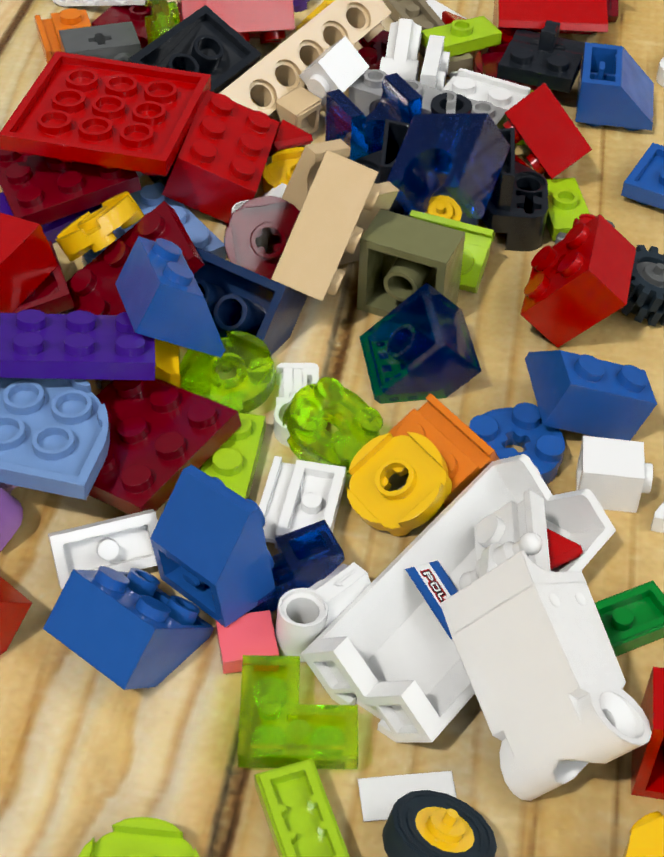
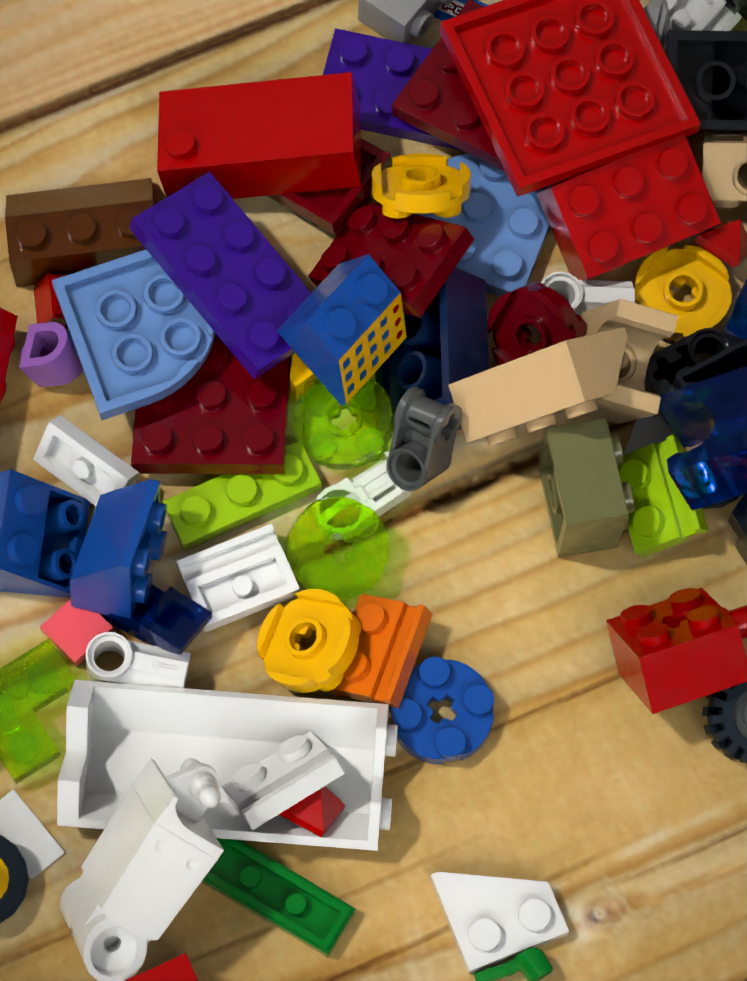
camera: 55 degrees right, 25 degrees up
(296, 317) = (421, 439): none -> dark grey piece
(419, 349) = (499, 559): slope -> none
(434, 587) = (218, 740): sticker -> none
(589, 394) = (542, 735): blue slope -> none
(614, 472) = (454, 812): white brick -> none

